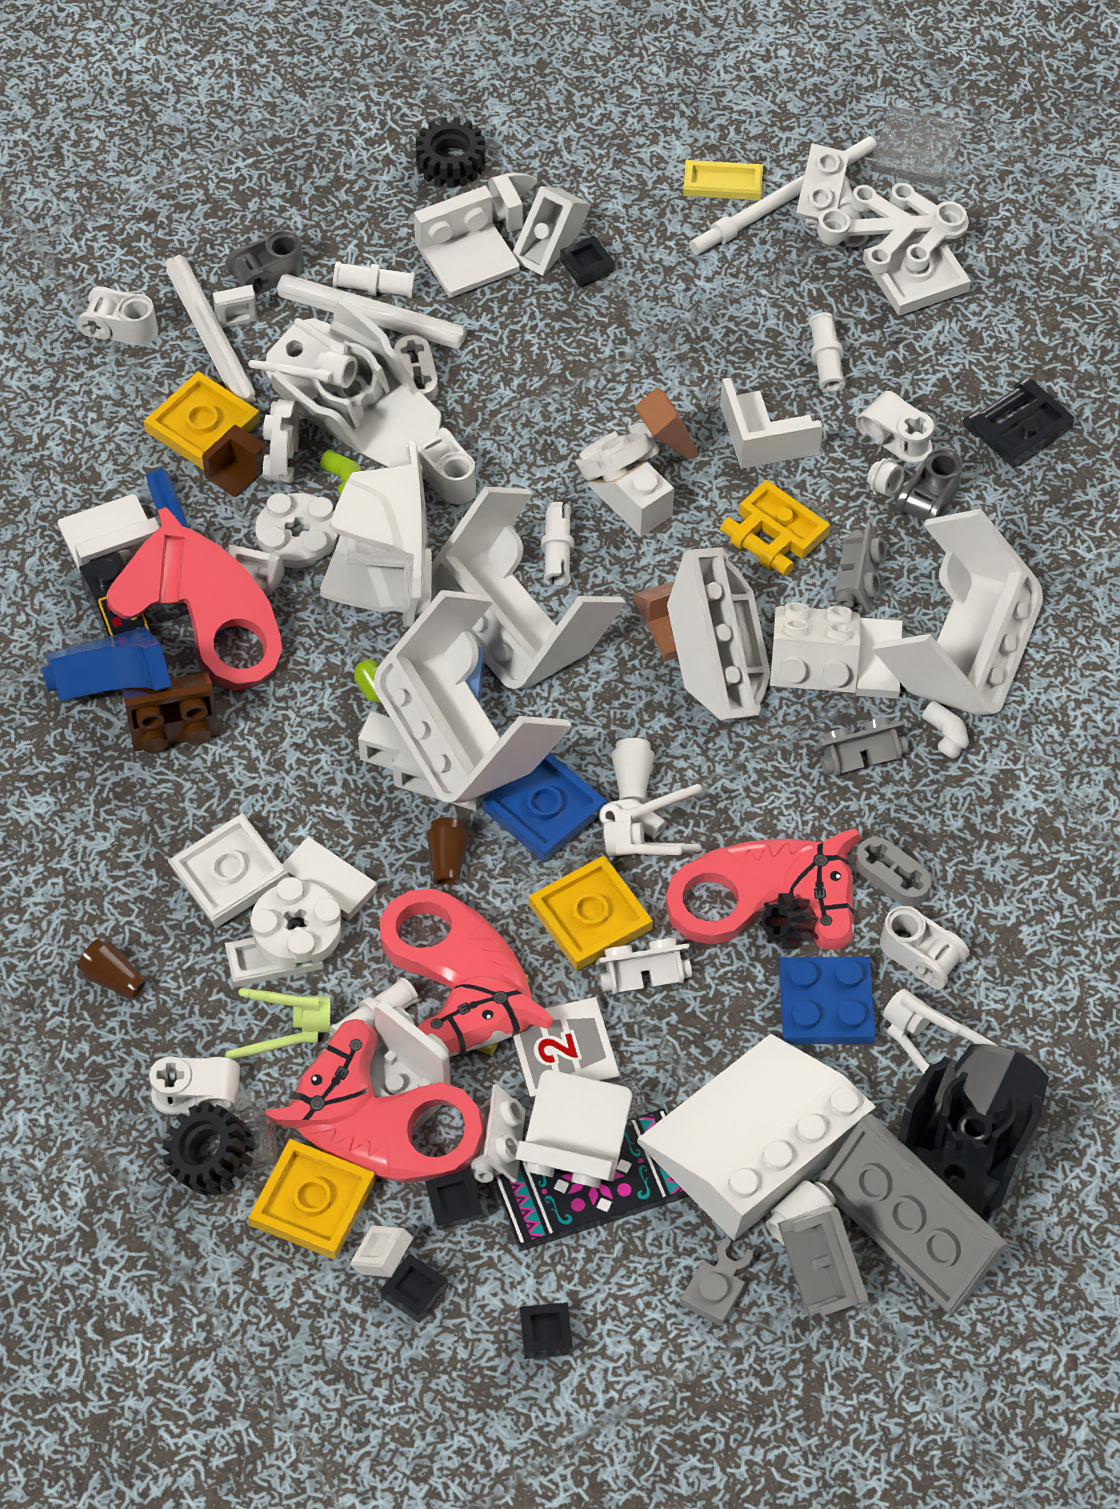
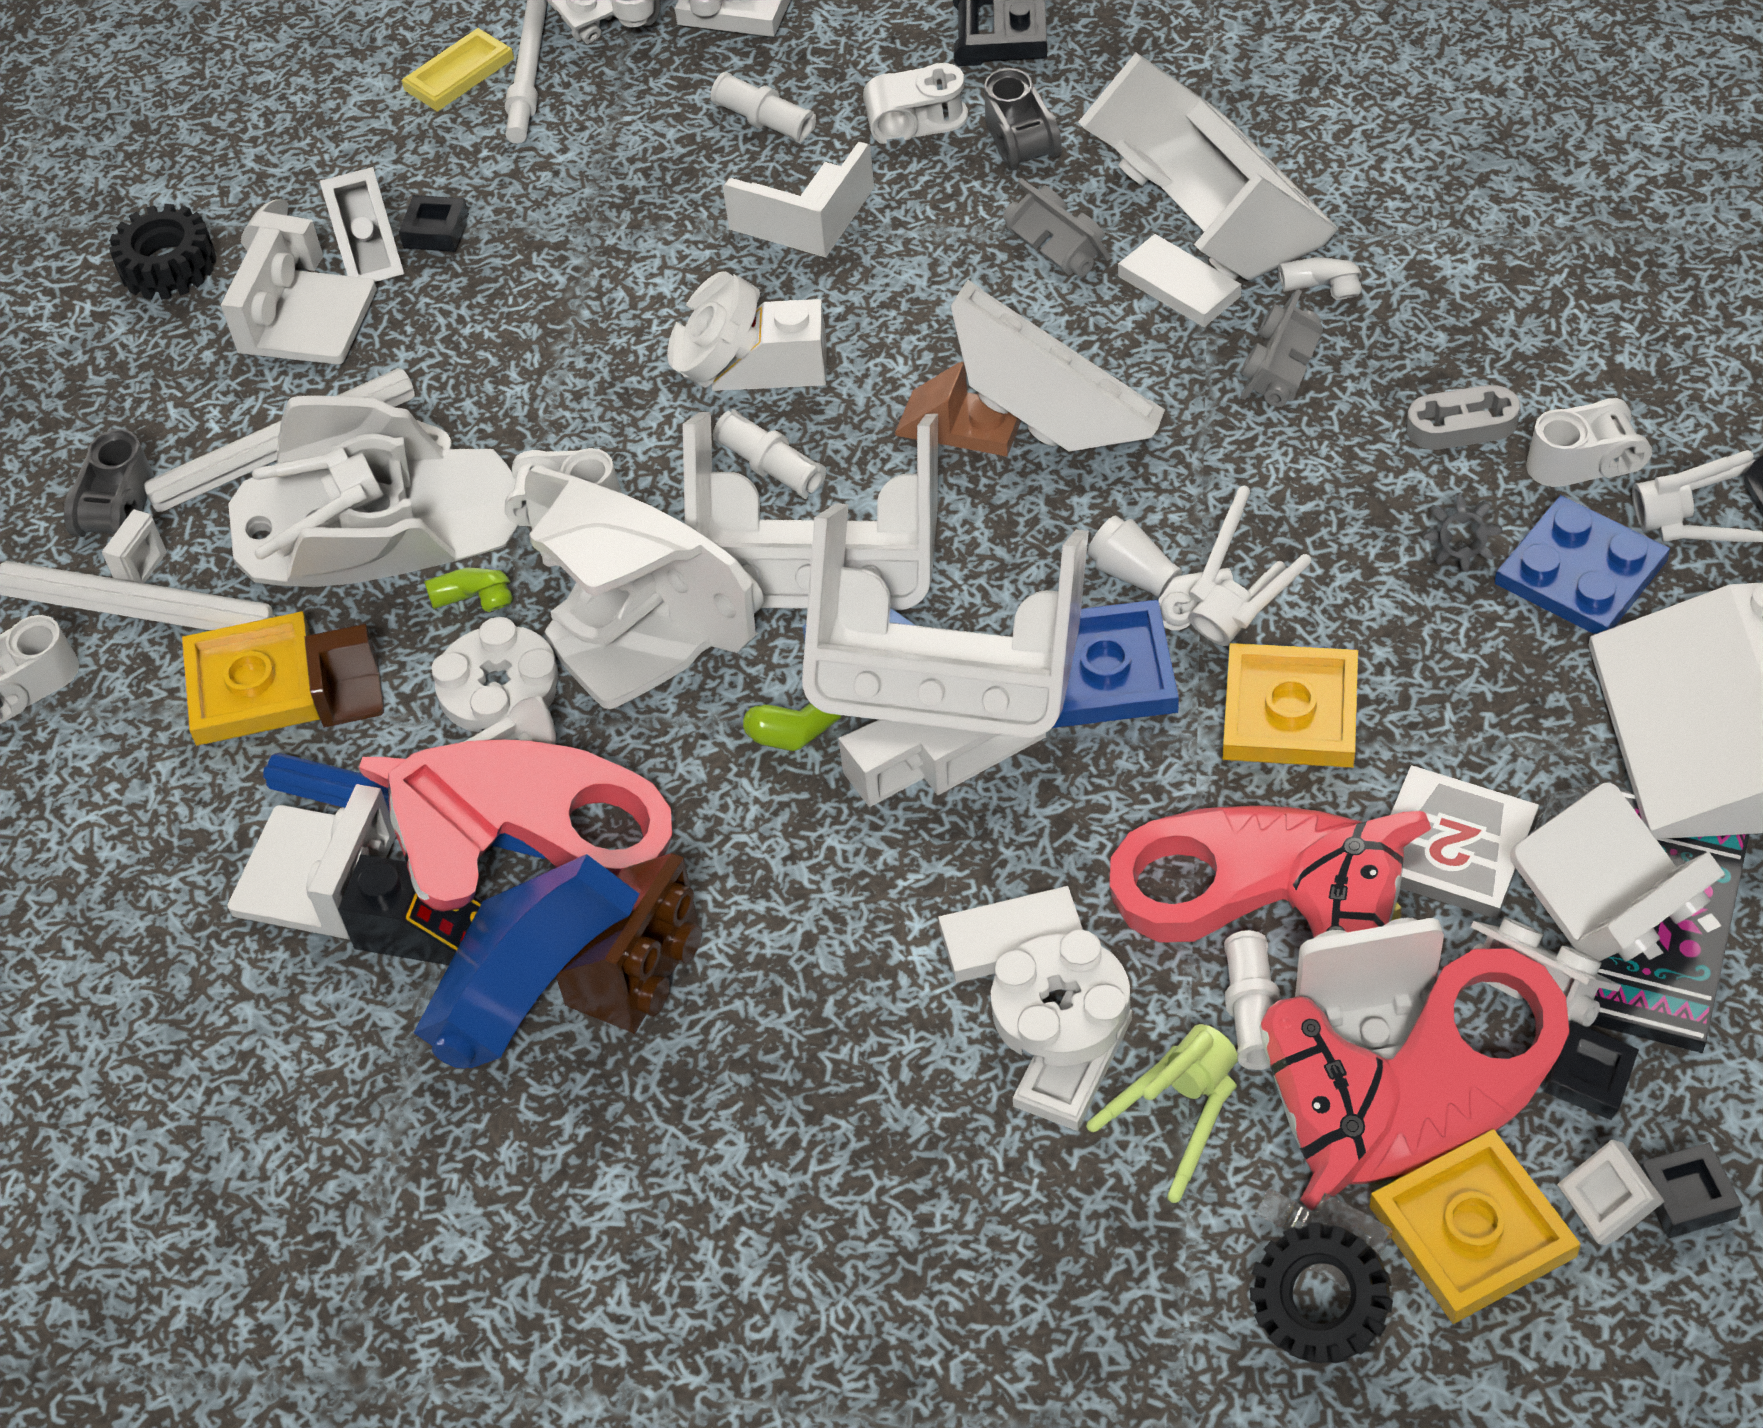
camera: 45 degrees left, 5 degrees down
(111, 969) = (944, 1248): reddish brown cone -> none
(195, 1083) = (1205, 1257): white piece -> none
(228, 870) = (912, 1028): white plate -> none
(283, 431) = (380, 603): white plate -> none
(373, 279) = (244, 411): white pin -> none
(447, 849) = (1083, 788): reddish brown cone -> none
(661, 961) = (1388, 712): white hinge -> none
(665, 423) = (732, 249): nougat slope -> none
(759, 873) = (1371, 527): coral animal -> none
(782, 519) = (934, 254): yellow plate -> none
(815, 648) = (1128, 312): white bracket -> none
(883, 473) = (963, 149): white plate -> none

